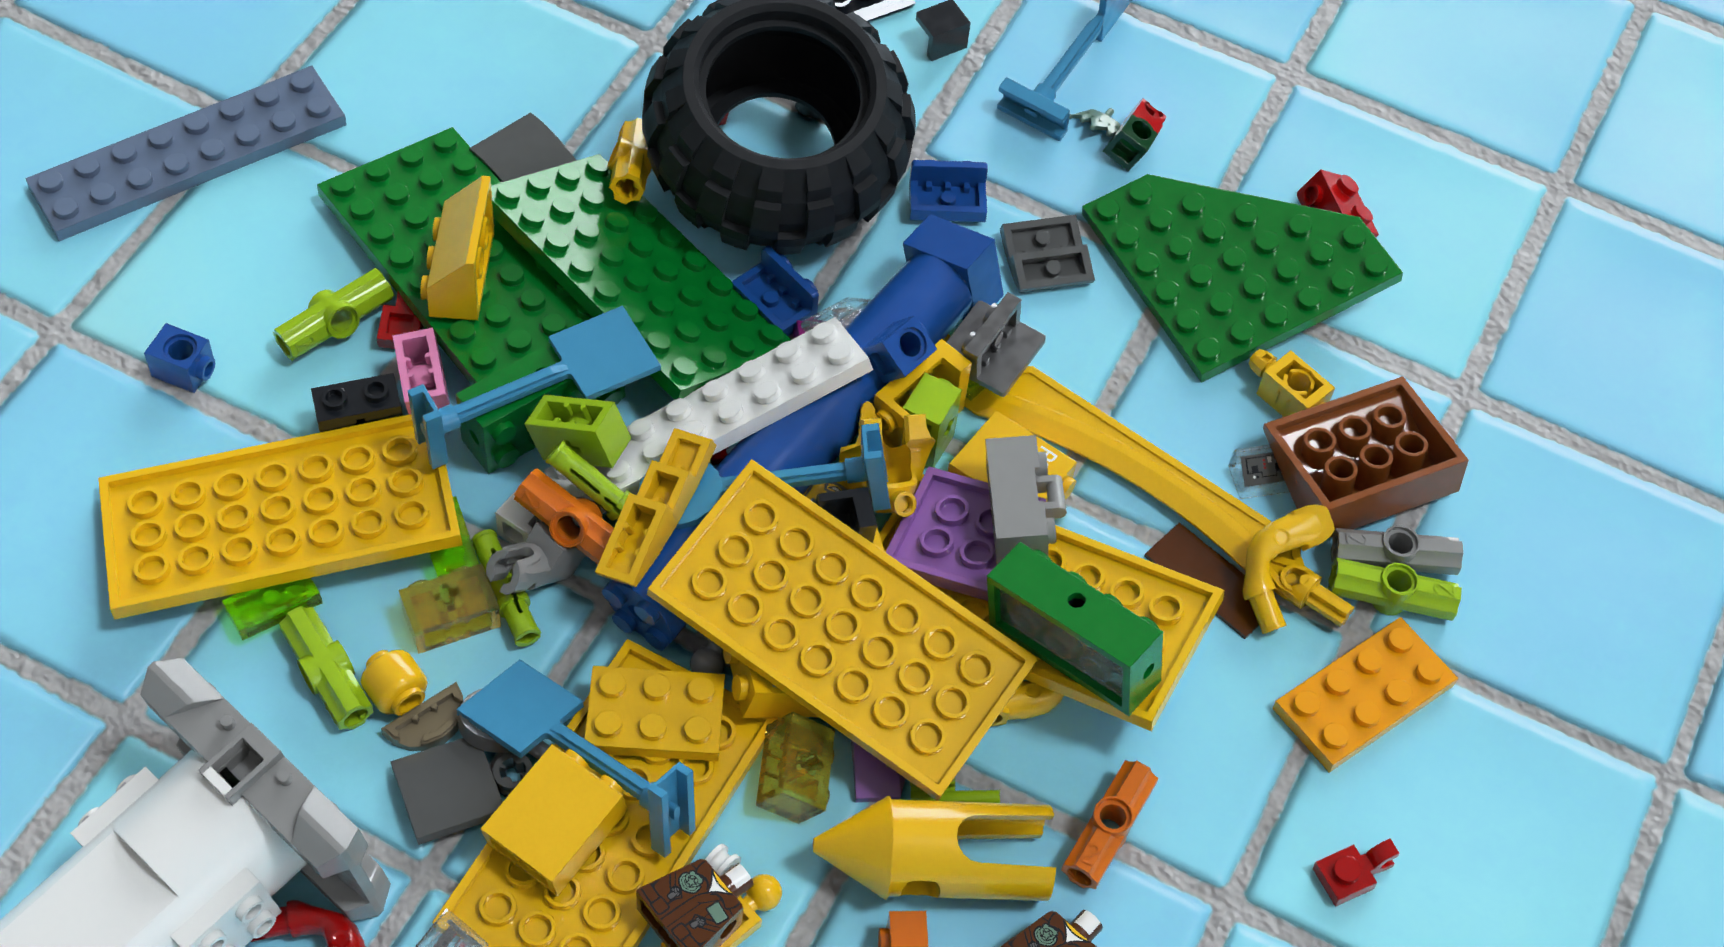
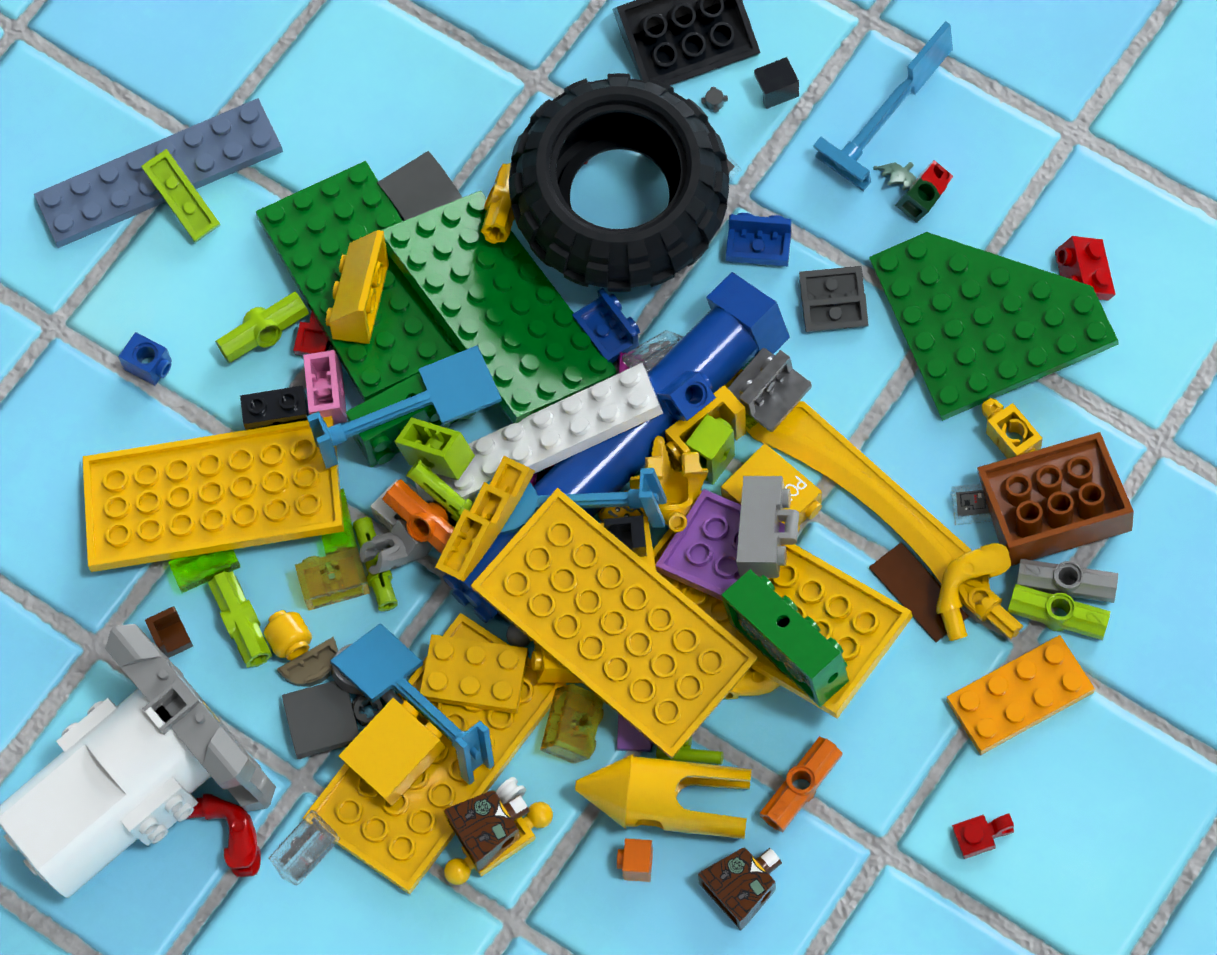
camera: 20 degrees right, 10 degrees up
(219, 169) = (180, 195): none -> lime plate
(230, 682) = (169, 632): none -> reddish brown panel

